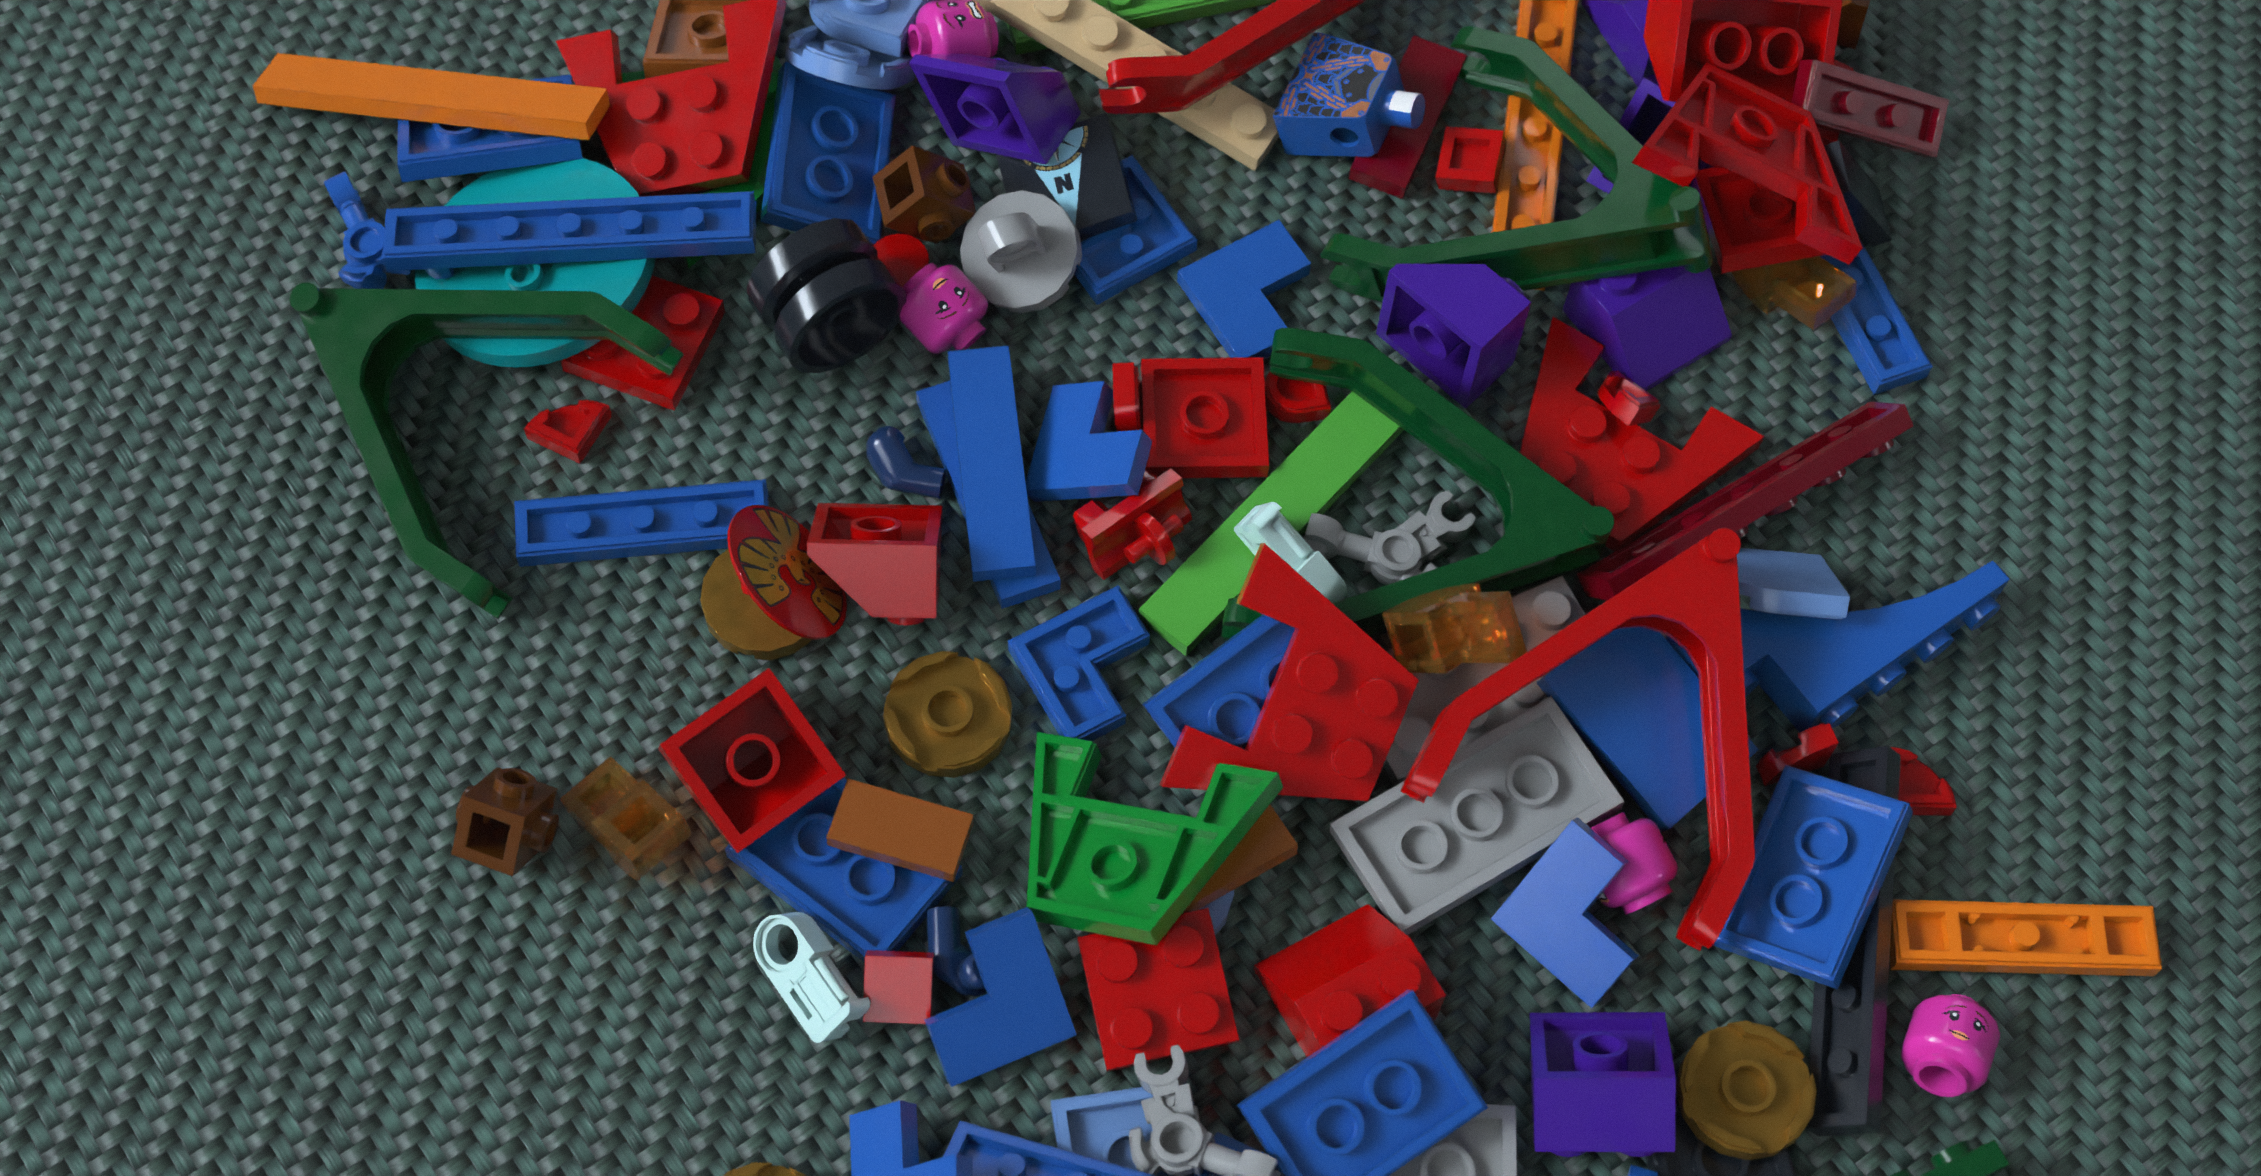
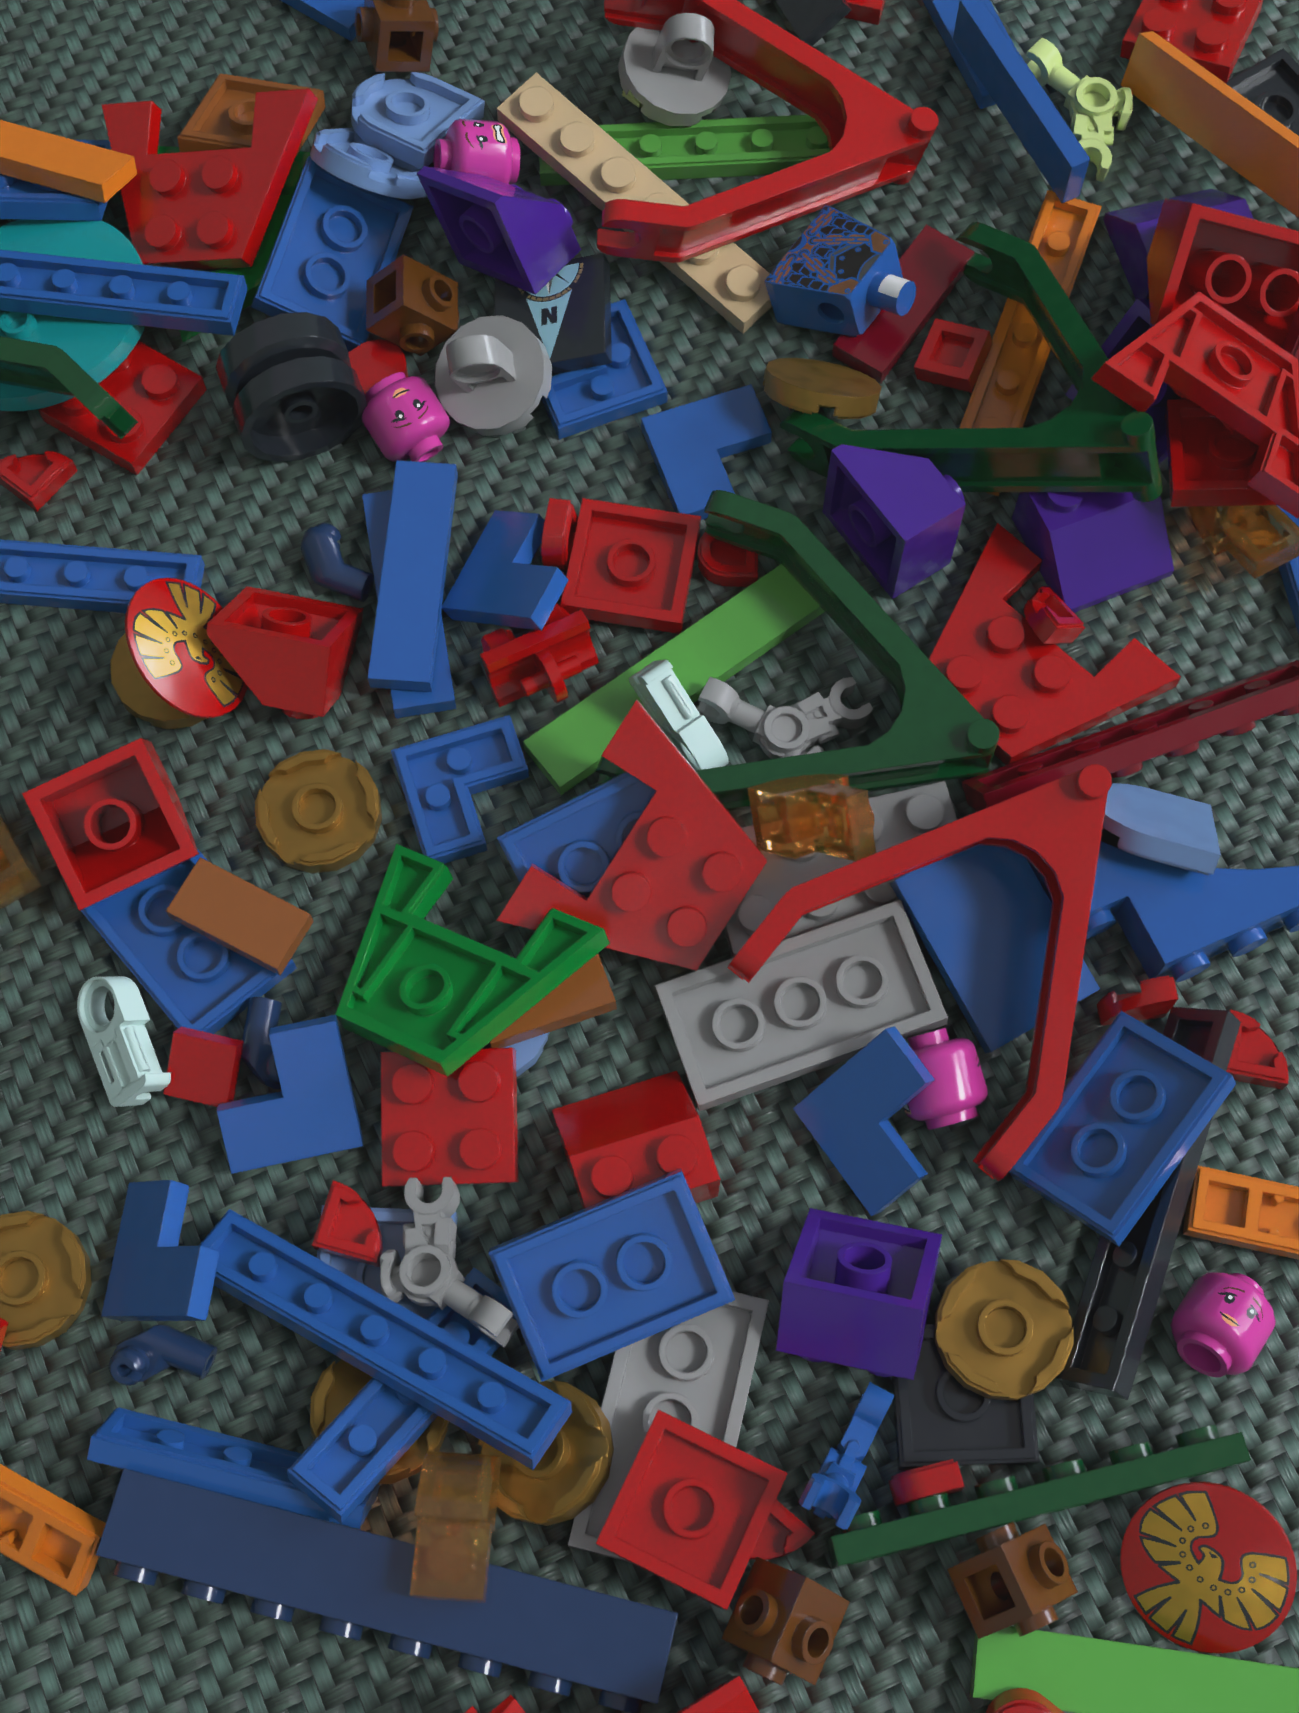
camera: 15 degrees right, 5 degrees up
(1086, 1115) = (348, 1227): none -> red tile
(1351, 209) = (816, 384): none -> pearl gold tile

